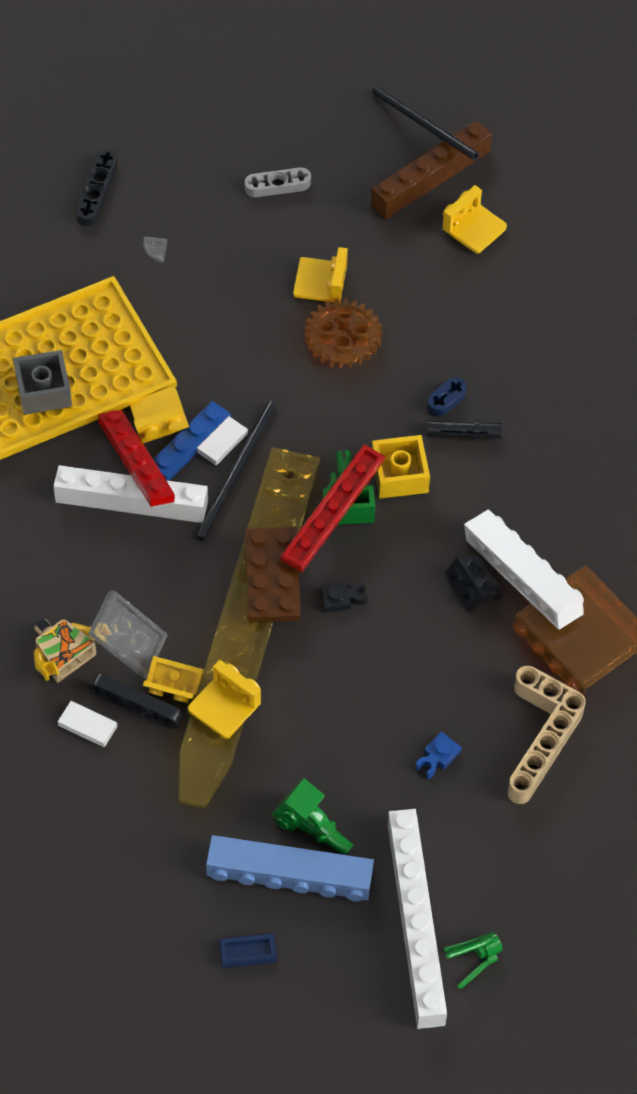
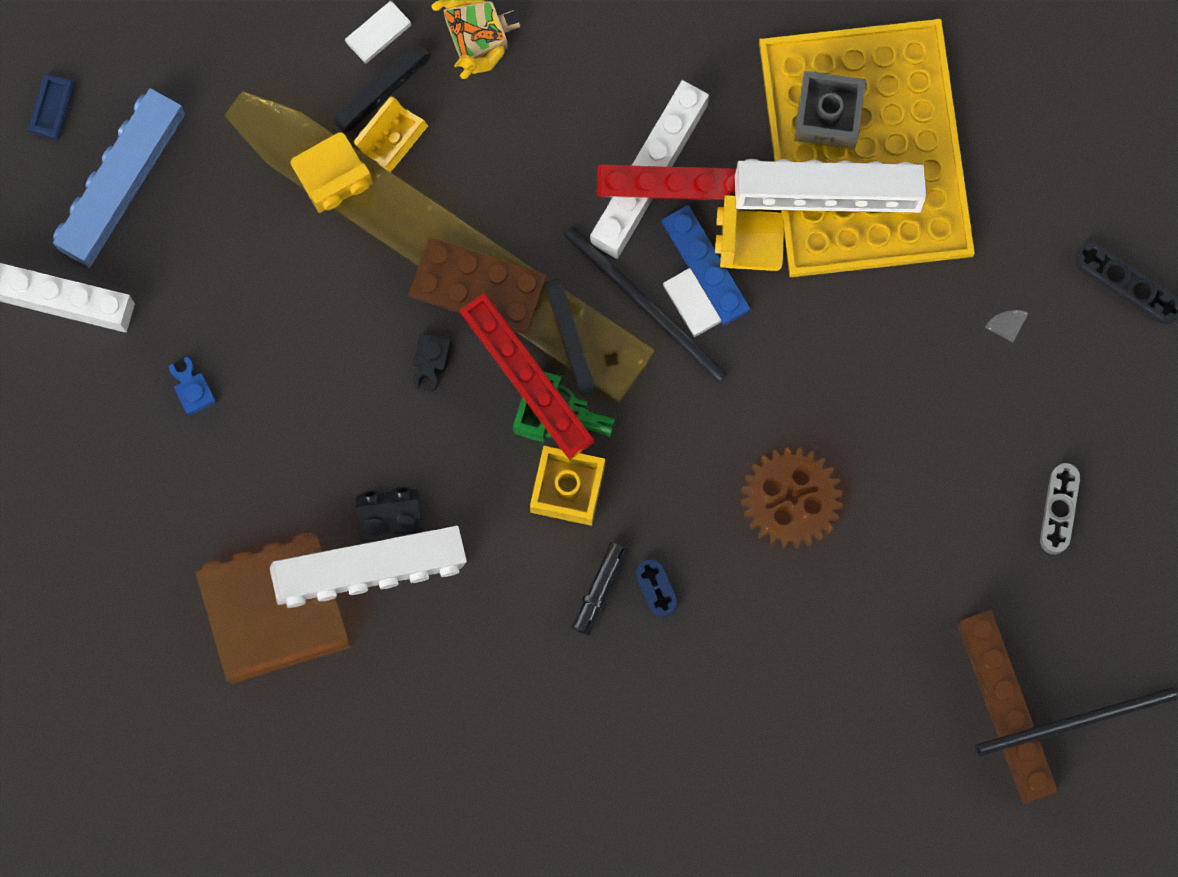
camera: 115 degrees right, 20 degrees up
(103, 363) = (829, 186): none -> white brick
(127, 633) = (456, 97): clear tile -> none
(287, 497) = (570, 336): none -> black beam
(301, 811) = (169, 204): green brick -> none
(321, 278) = (885, 503): yellow bracket -> none
(472, 222) = (903, 727): yellow bracket -> none
(549, 734) = (161, 514): tan beam -> none

